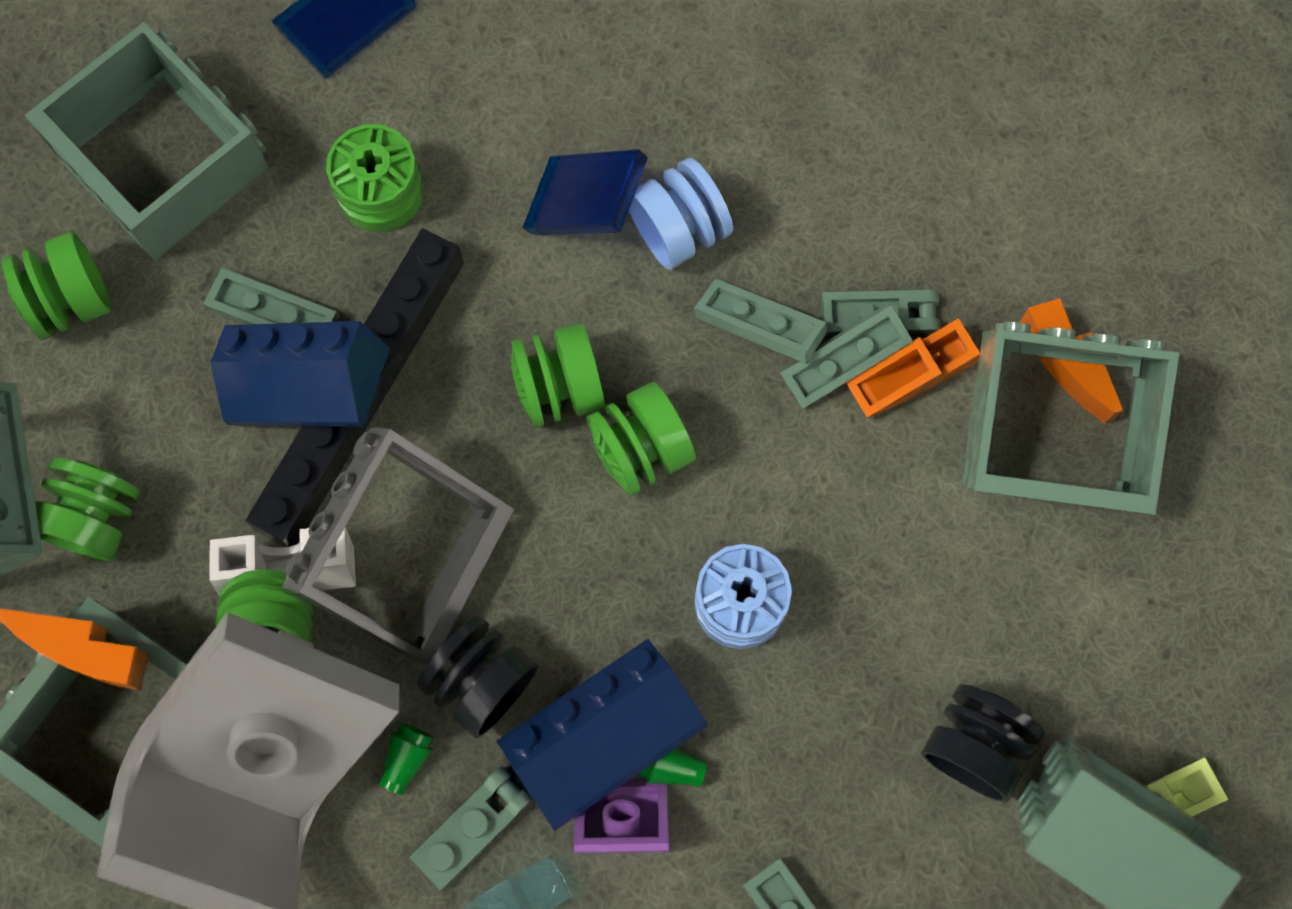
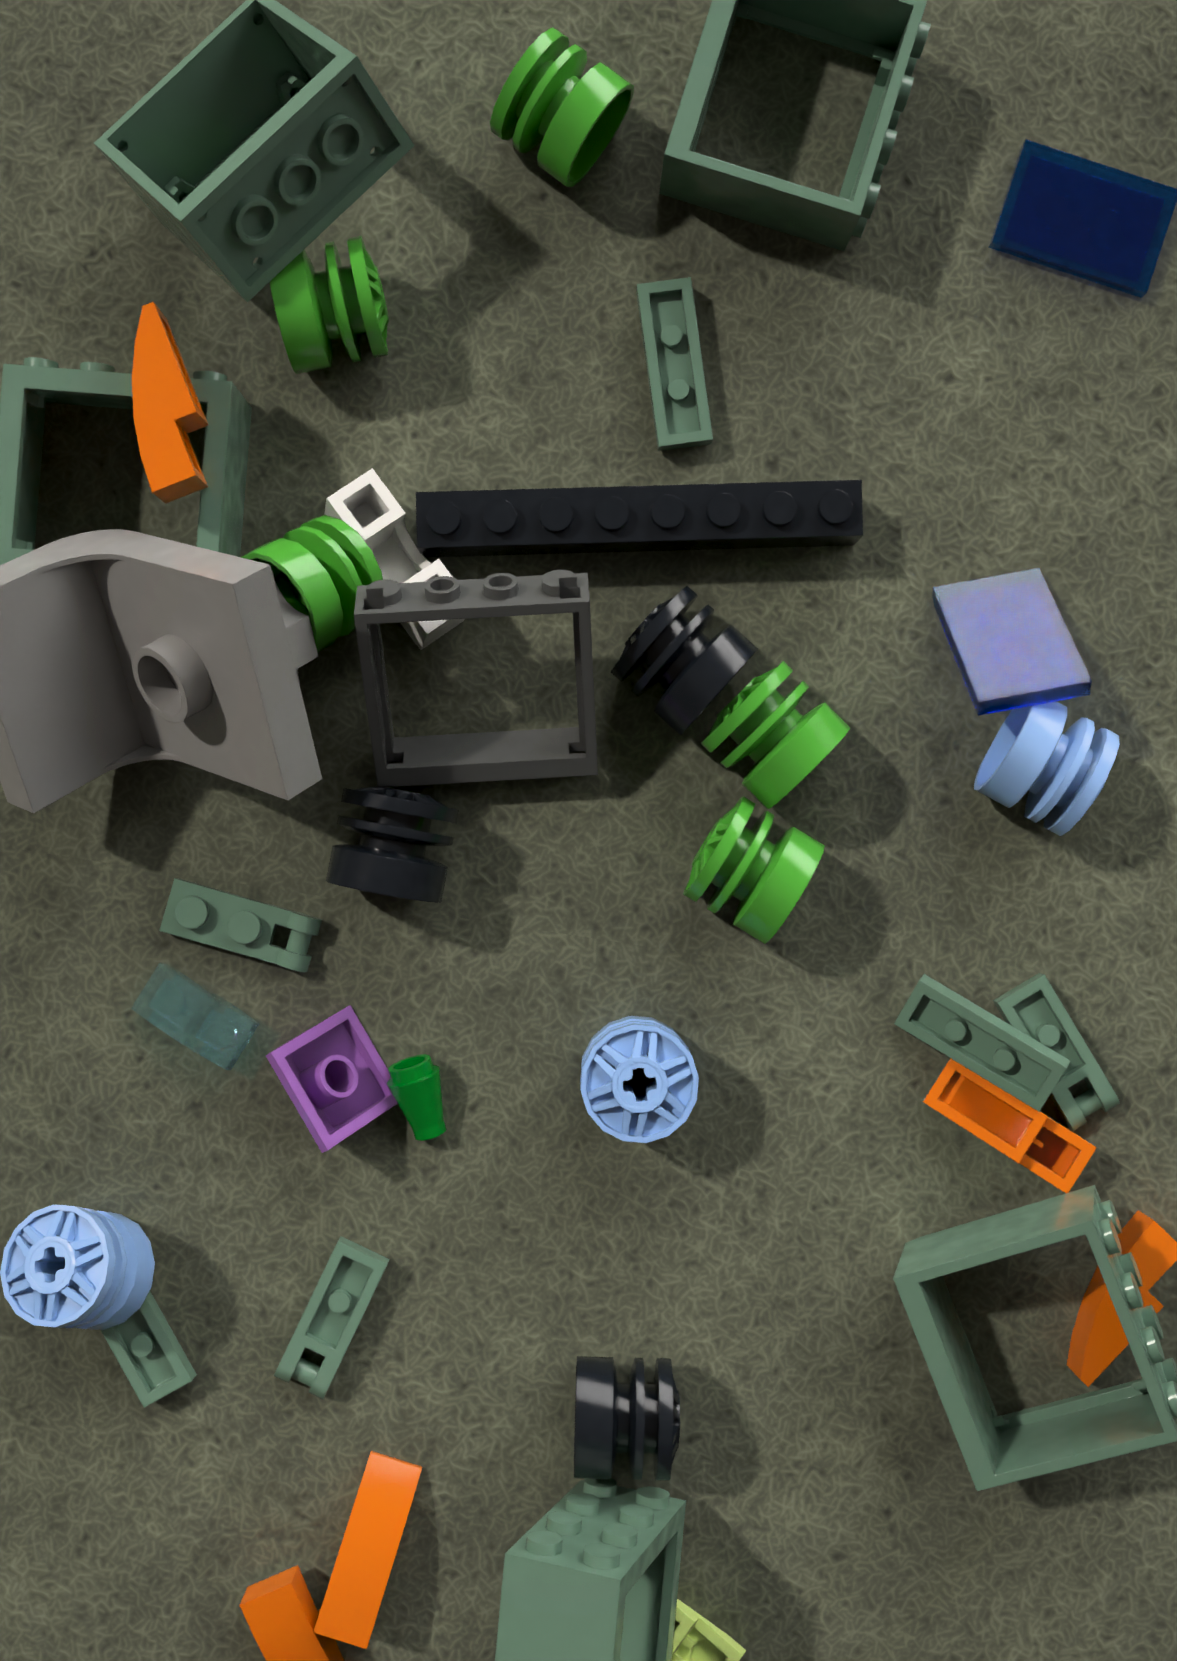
camera: 60 degrees right, 15 degrees up
(297, 373) = (608, 449): dark blue slope -> none
(380, 198) = (900, 417): bright green wheel -> none
(404, 758) = (271, 815): green cone -> none
(470, 407) = (682, 659): none -> black wheel
(602, 734) = (406, 1011): dark blue slope -> none
(761, 320) = (969, 924): sand green plate -> none

